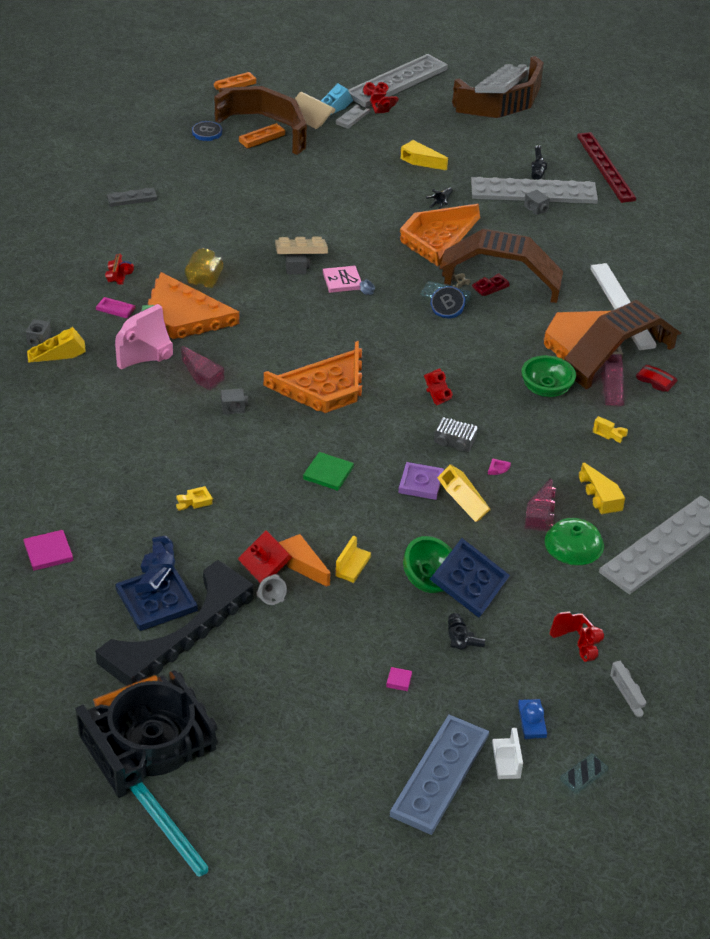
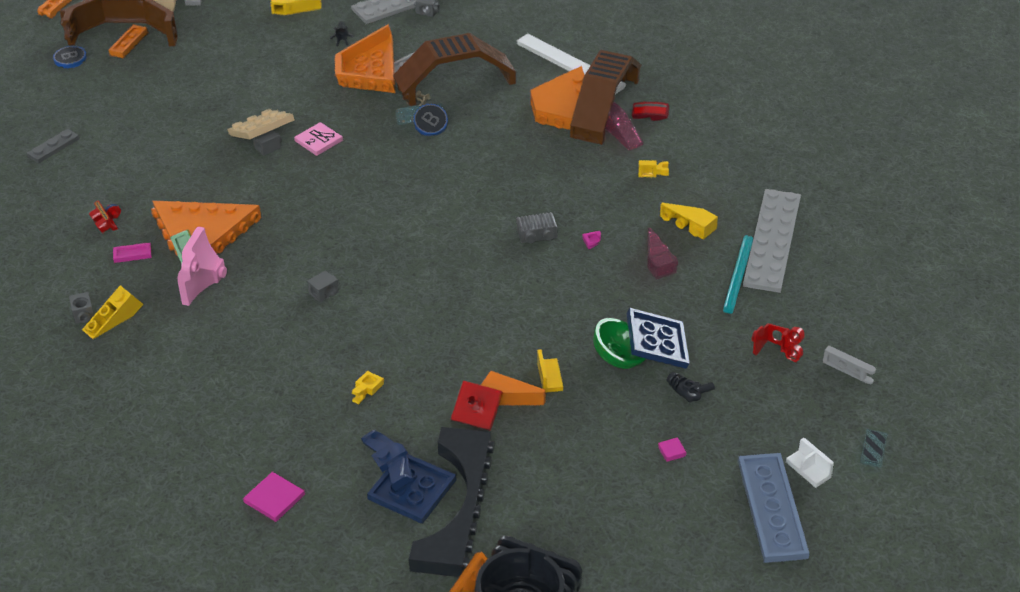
camera: 30 degrees left, 0 degrees up
(202, 369) = (267, 271): clear pink slope -> none
(204, 268) = (189, 180): clear yellow brick -> none
(276, 590) = (505, 427): light grey piece -> none
(324, 383) = (387, 234): orange piece -> none
(328, 471) = (458, 308): green tile -> none
(367, 287) = (348, 136): sand blue plate -> none
(420, 481) = (543, 279): medium lavender plate -> none
(437, 386) = (488, 195): red hips -> none
(463, 492) = (589, 272): yellow slope -> none
(492, 285) = (450, 90): dark red slope -> none
(532, 718) = (799, 425): blue tile -> none
(548, 375) = (570, 145): green hat -> none
(574, 541) = (704, 270): green hat -> none
(600, 560) = (738, 274): none -> teal axle

